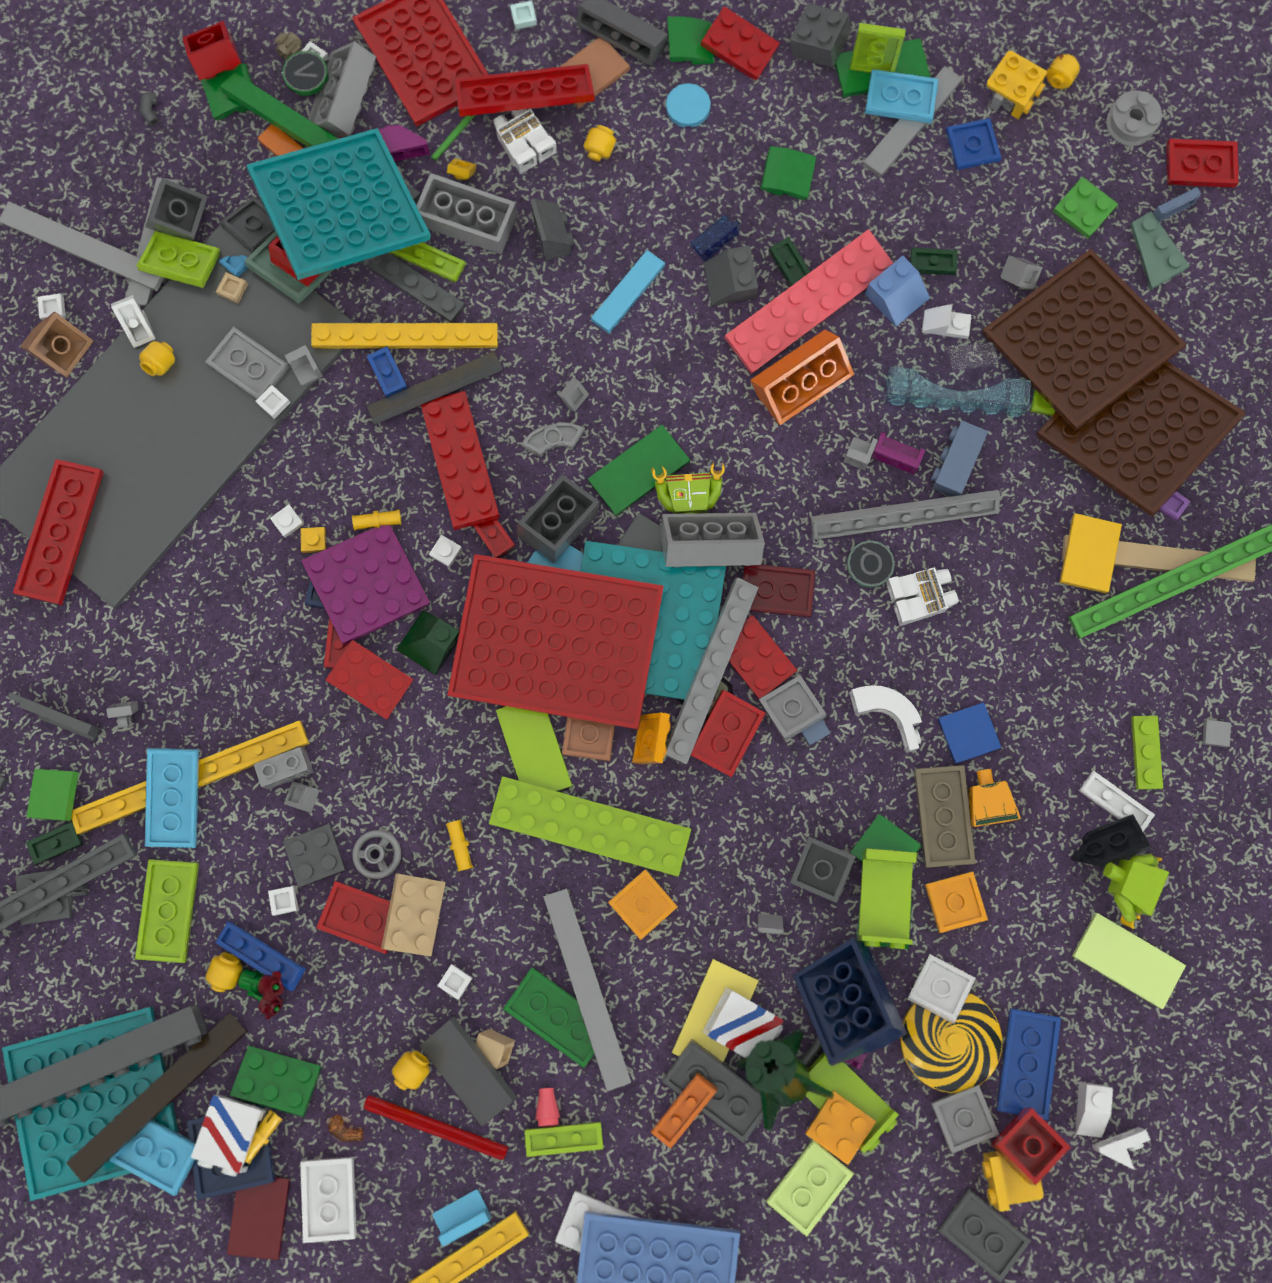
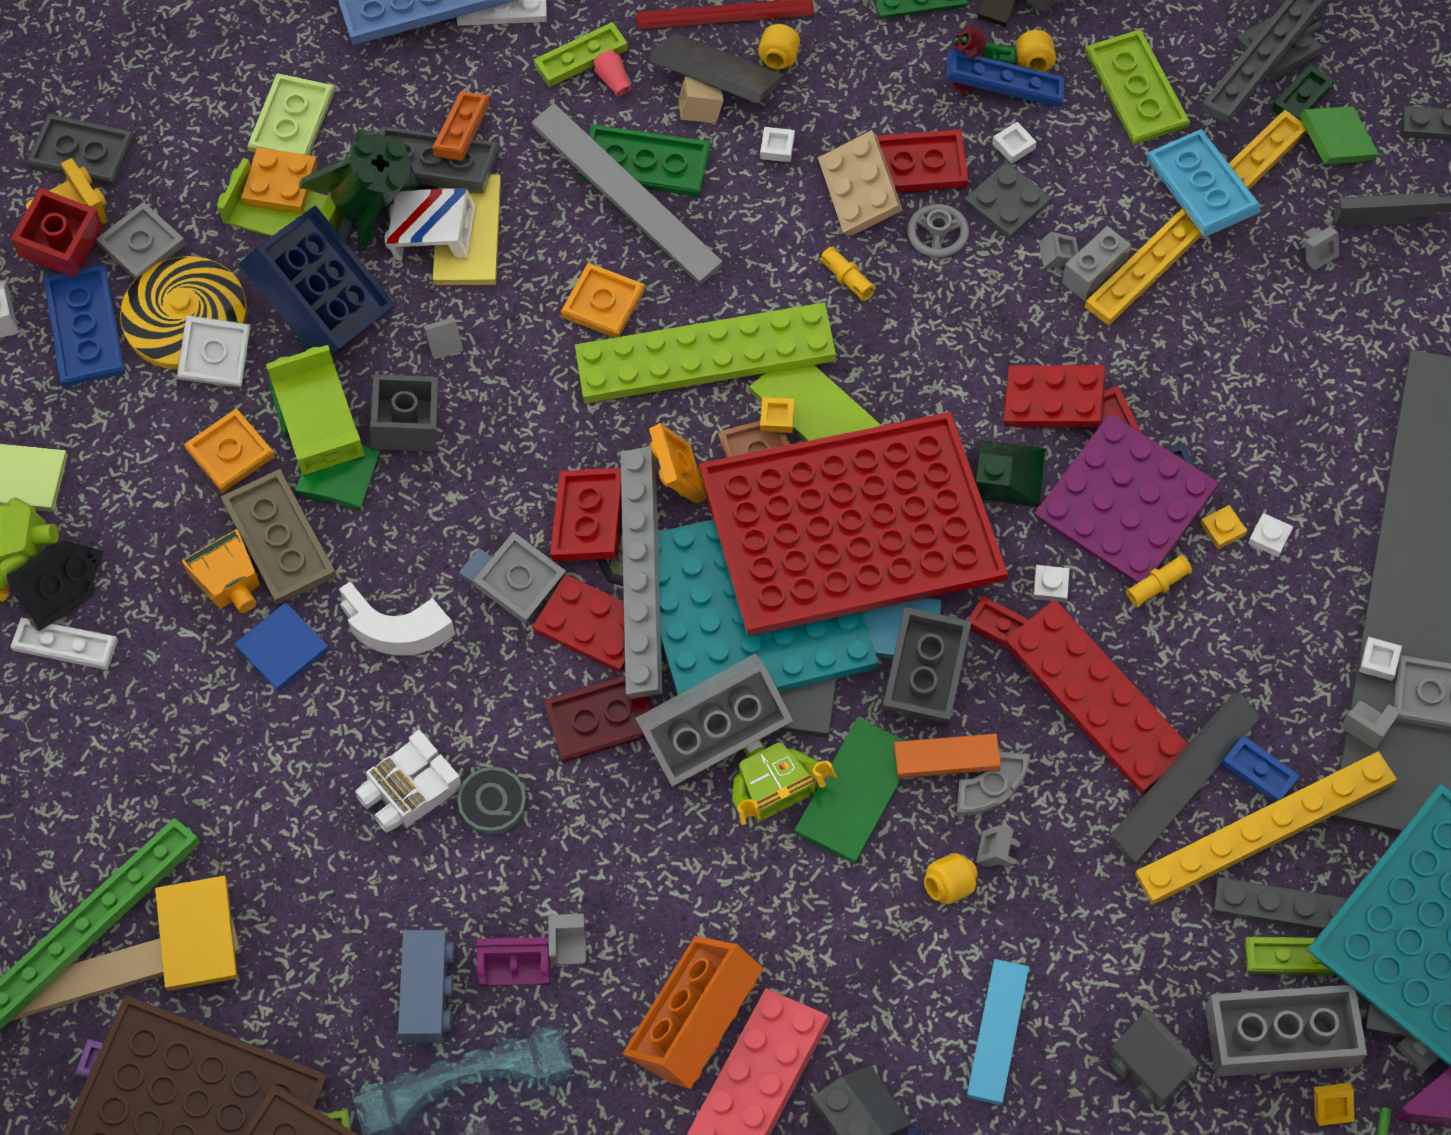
camera: 155 degrees right, 15 degrees down
(565, 748) = (777, 415): none -> yellow plate
(573, 461) = (947, 755): none -> orange tile
(610, 386) = (950, 878): none -> yellow head
(905, 514) = (468, 879): light grey tile -> none
(1147, 752) = (42, 718): lime plate -> none

